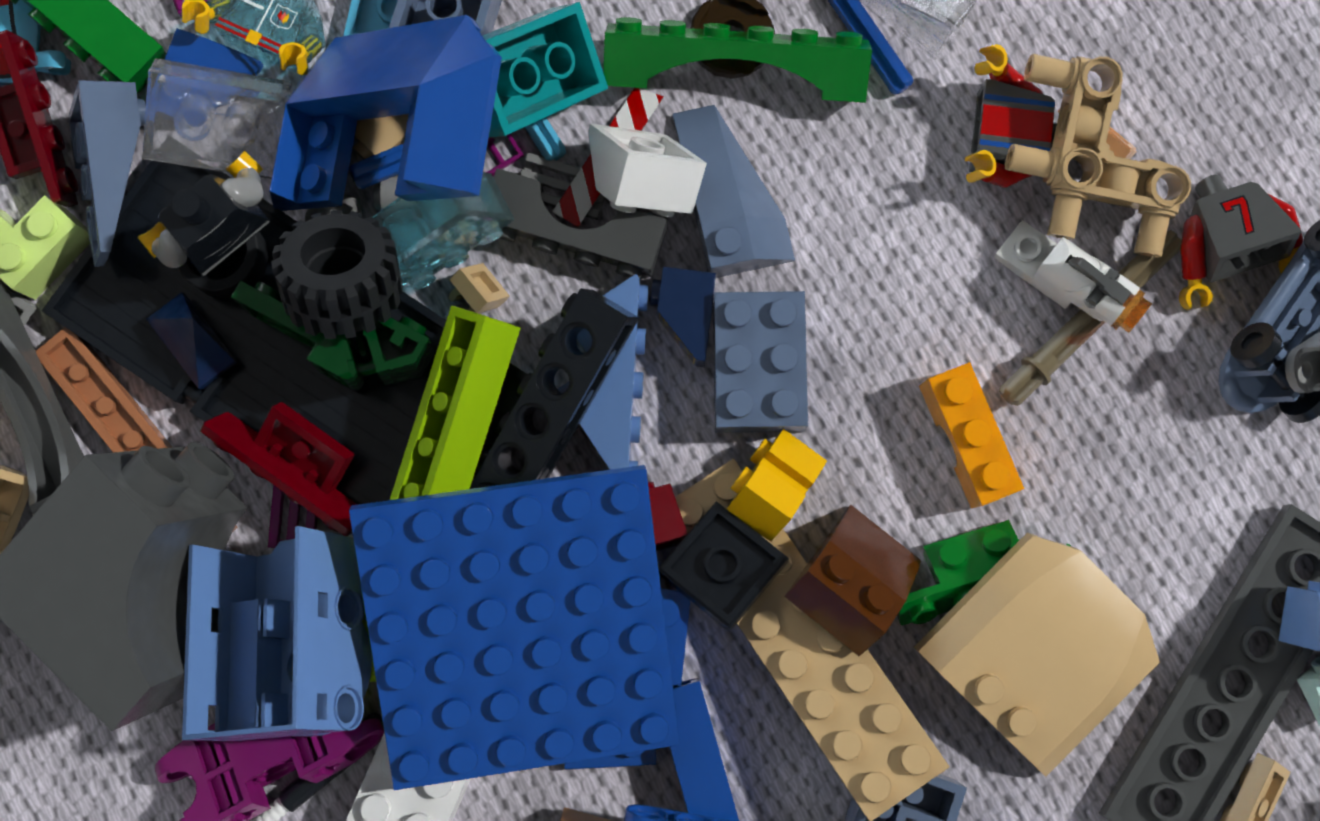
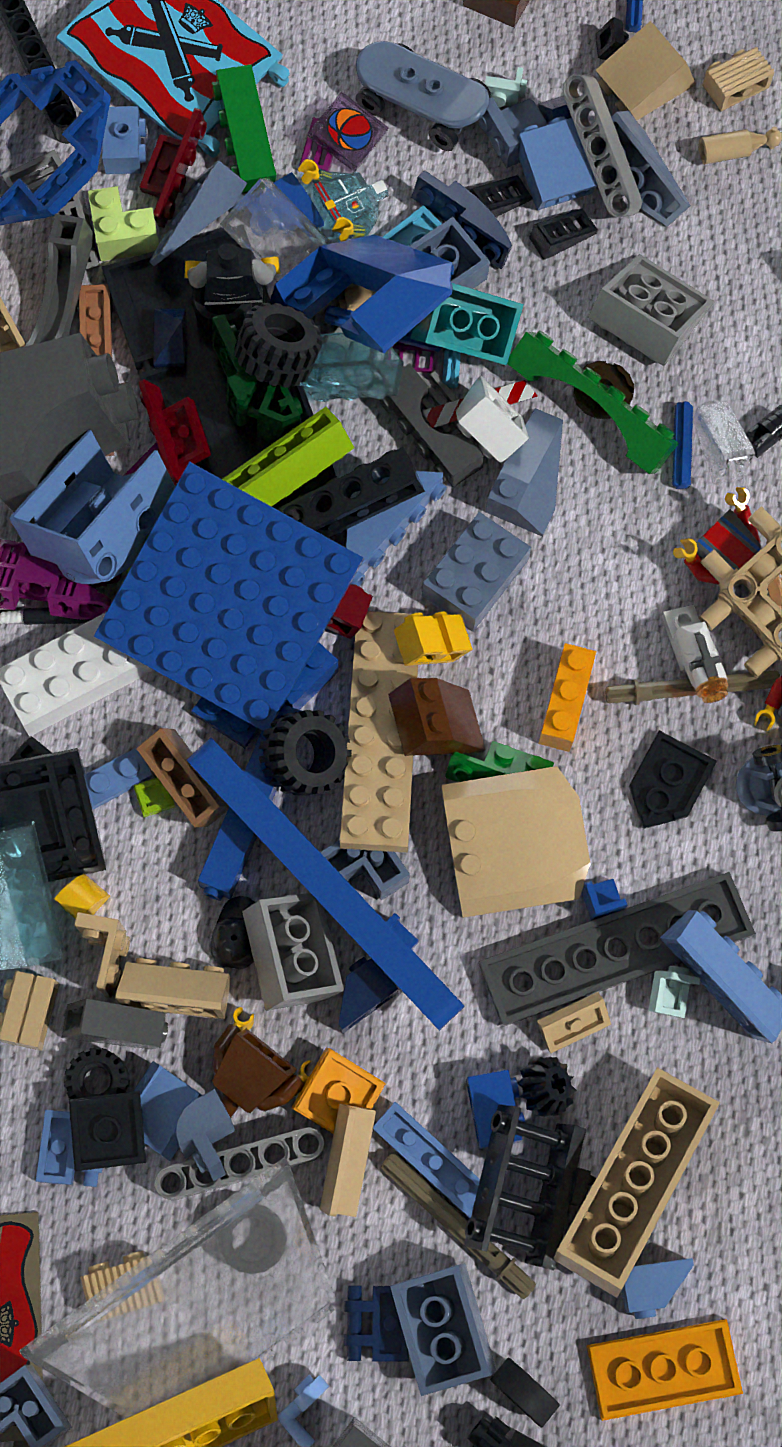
camera: 30 degrees right, 10 degrees down
(478, 288) = (351, 420): tan tile -> none
(685, 308) = (456, 510): dark blue slope -> none
(722, 566) = (366, 657): black tile -> none
(774, 737) = (328, 748): none -> black tyre
(1145, 445) = (669, 781): none -> black tile
(1183, 640) = (602, 899): none -> blue panel

